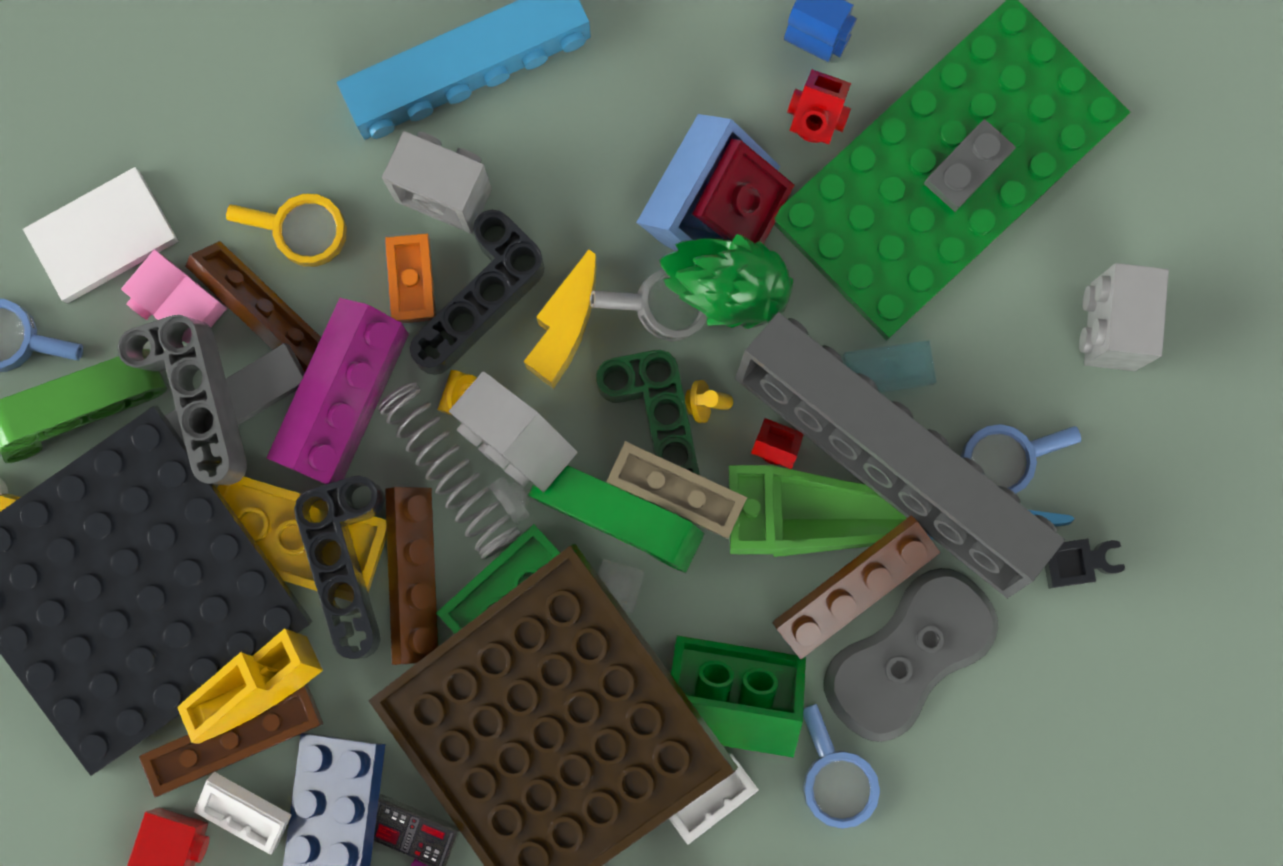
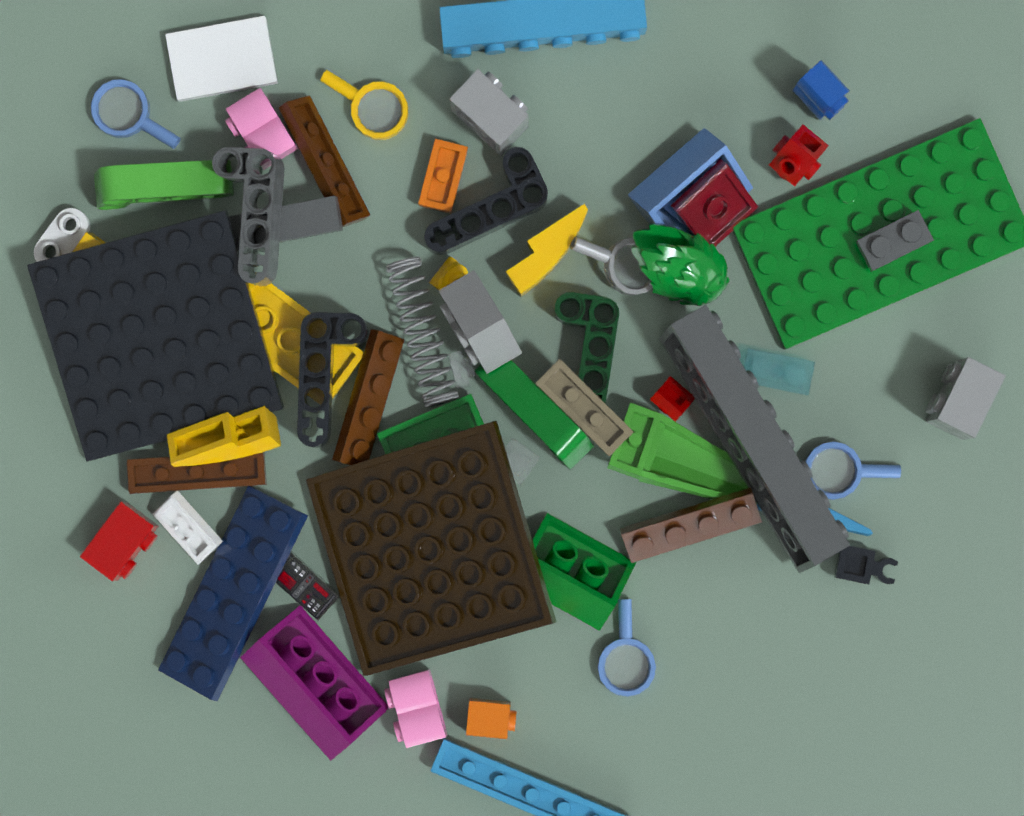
camera: 25 degrees right, 5 degrees up
(339, 392) = (361, 245): magenta slope -> none
(701, 399) = (627, 346): yellow plate -> none
(714, 804) = (529, 643): white plate -> none
(886, 678) = (690, 599): dark grey plate -> none

